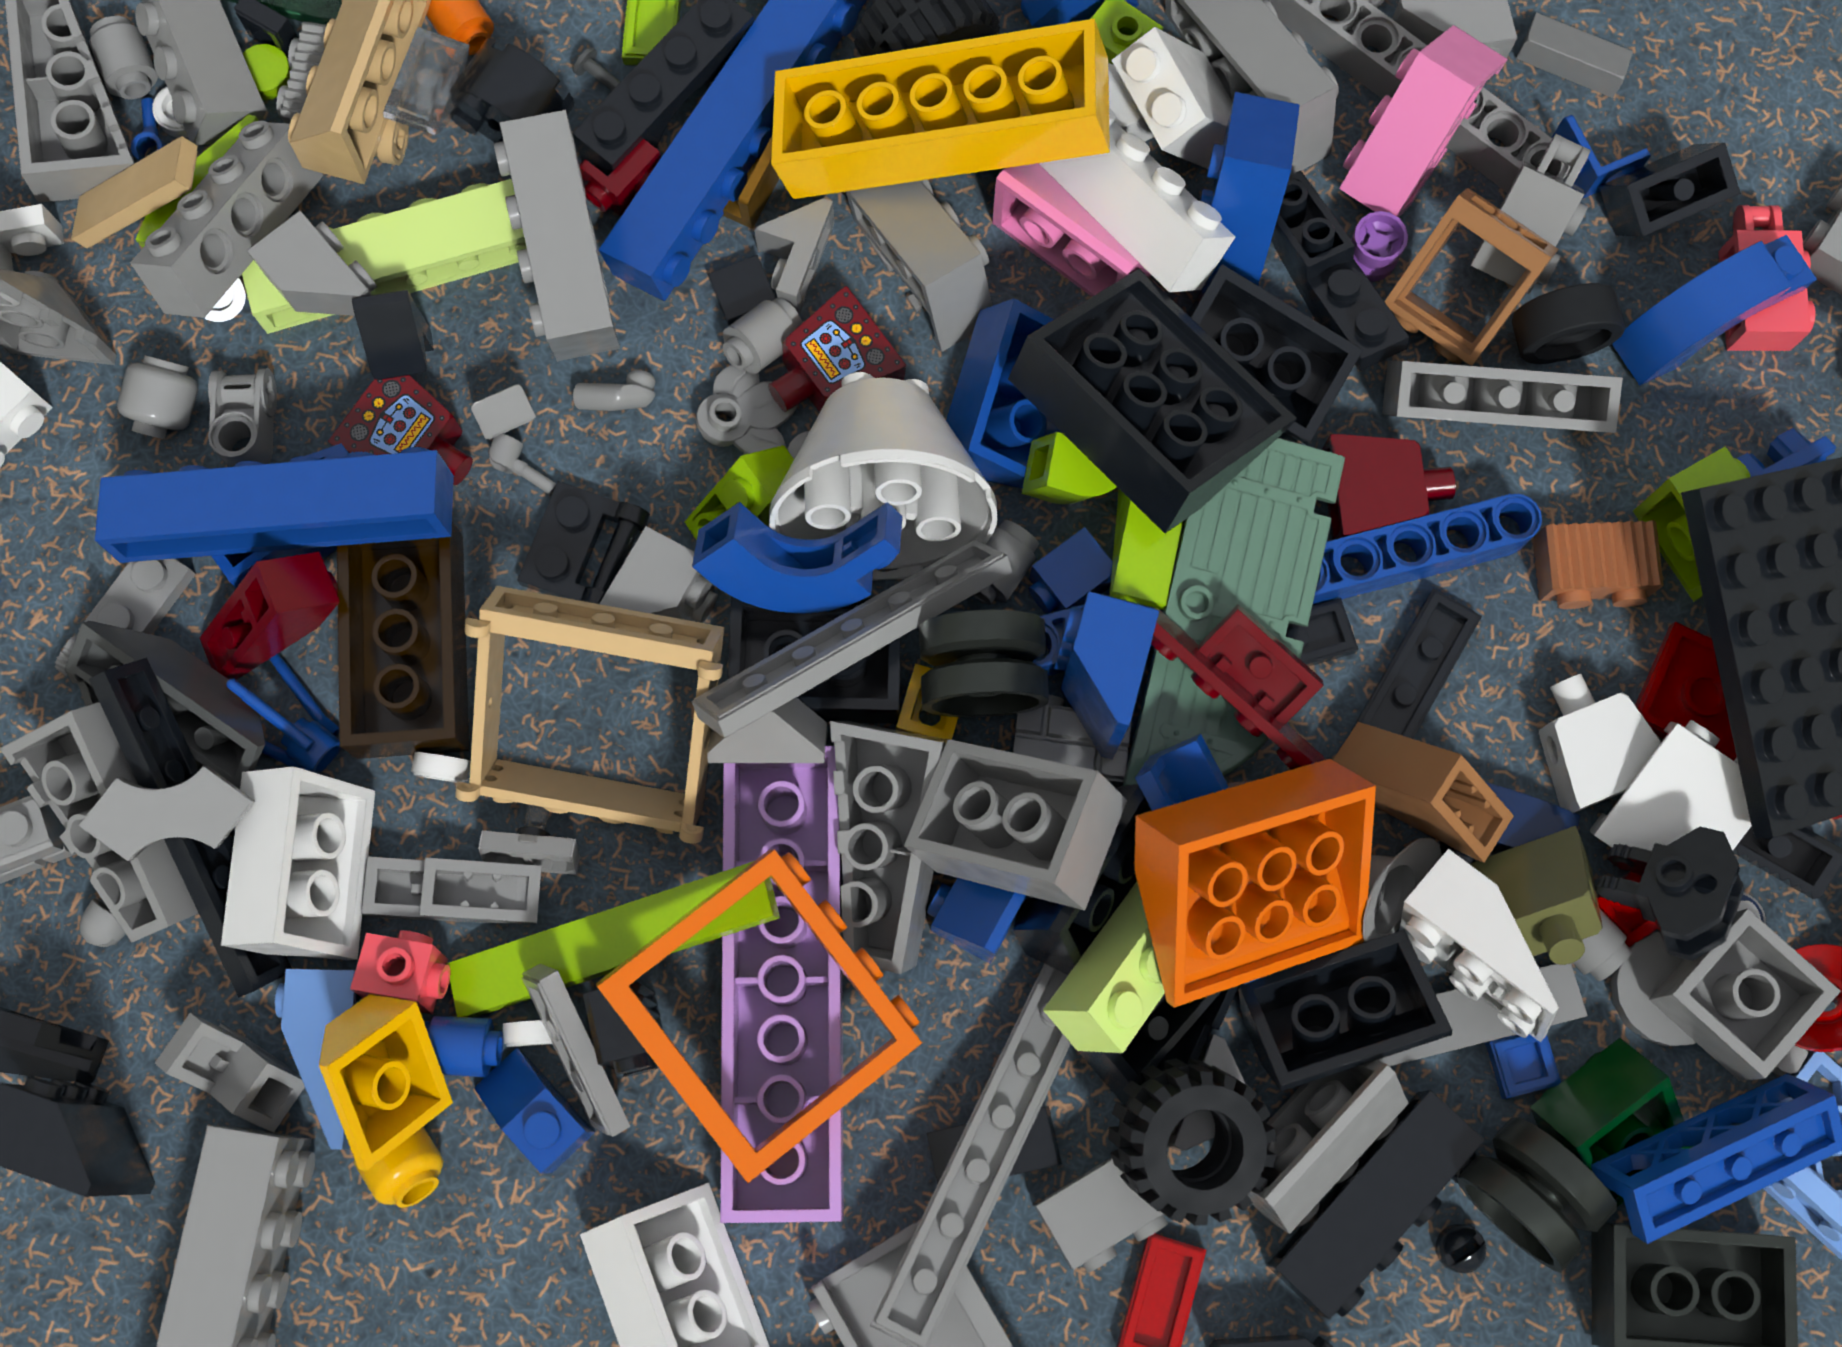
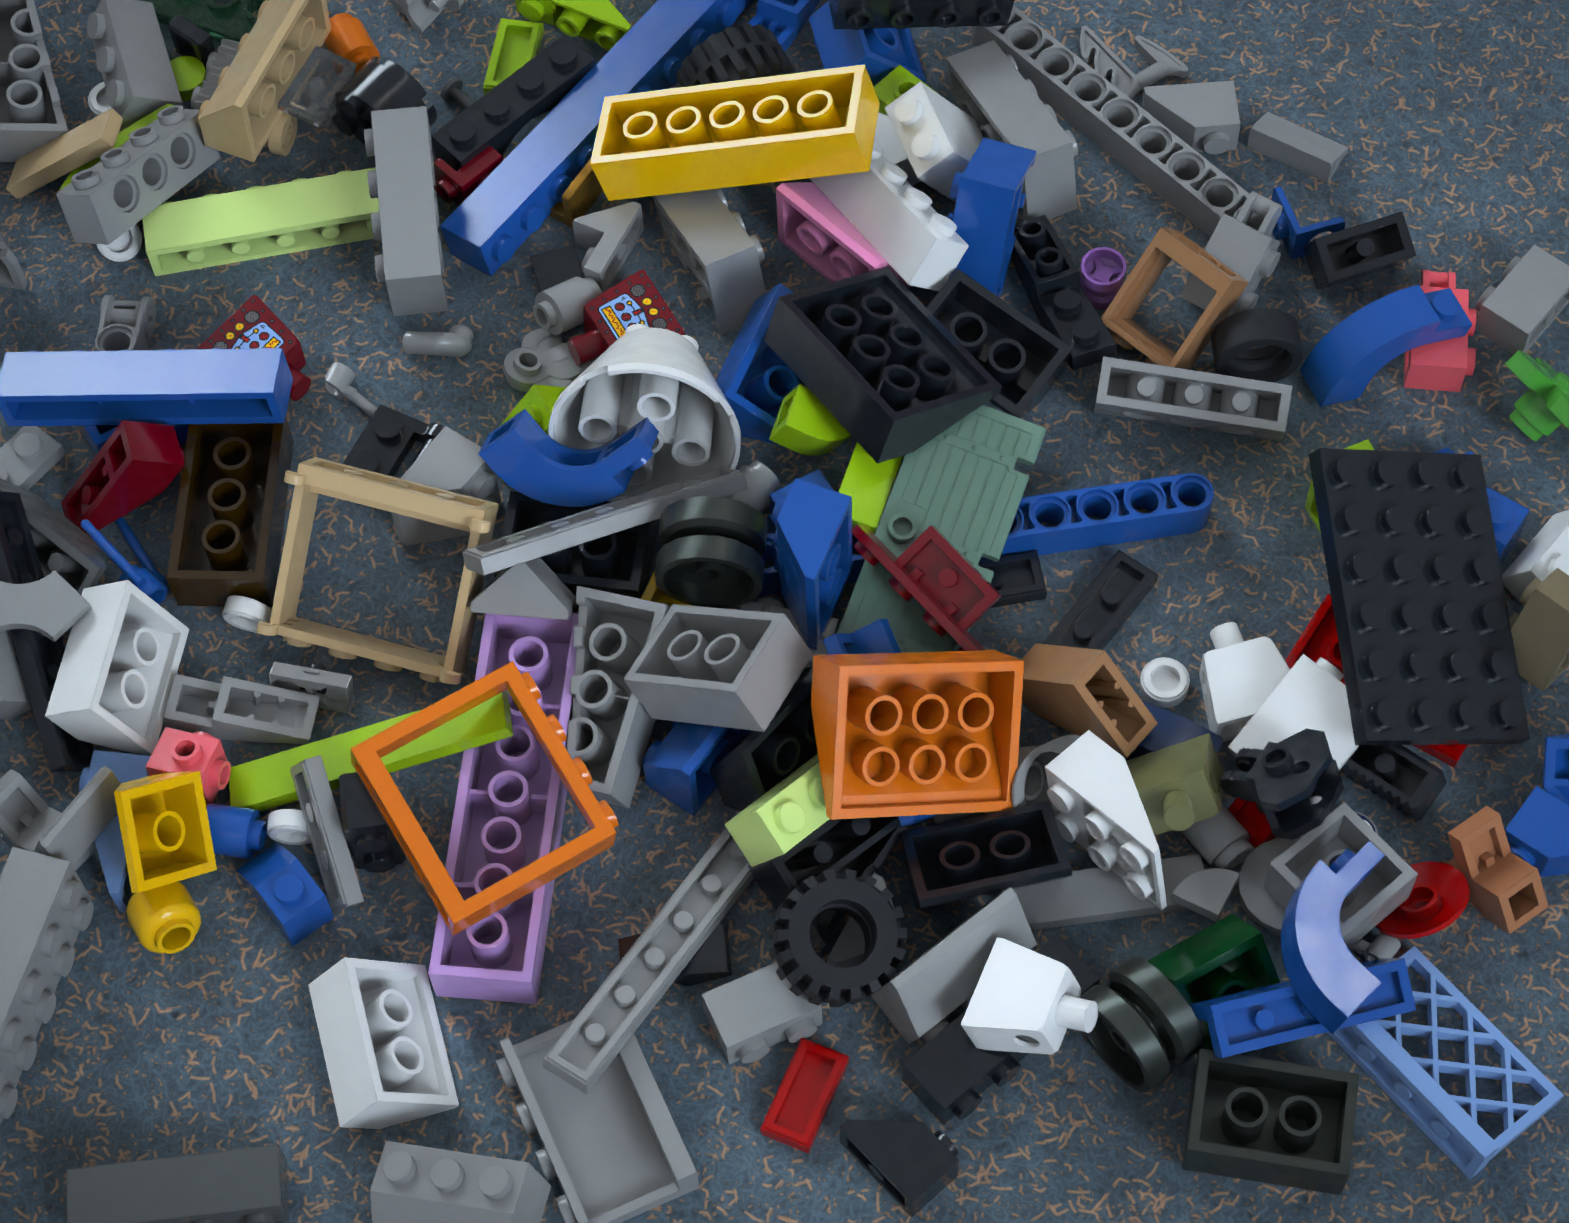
camera: 10 degrees right, 15 degrees down
(122, 57) = (70, 57): light grey brick -> none
(150, 133) = (83, 112): blue hand -> none
(157, 396) = (57, 311): light grey head -> none
(282, 1072) = (82, 819): none -> light grey slope
(308, 270) = (200, 221): light grey slope -> none
(393, 334) = (260, 272): black slope -> none
(503, 411) = (341, 342): light grey slope -> none
(1383, 483) = (1082, 456): dark red torso -> none
(1418, 120) = (1141, 176): bright pink wedge -> none
(1418, 1197) = (1025, 1002): none -> white torso
(1454, 1239) = (1079, 1086): black hinge -> none
(1502, 748) = (1164, 682): none -> white tile
(1522, 1065) = (1148, 932): blue tile -> none
(1589, 1012) = (1206, 891): none -> light grey tile
(1598, 563) = (1263, 539): nougat brick -> none
(1745, 1097) = (1312, 946): none -> arch

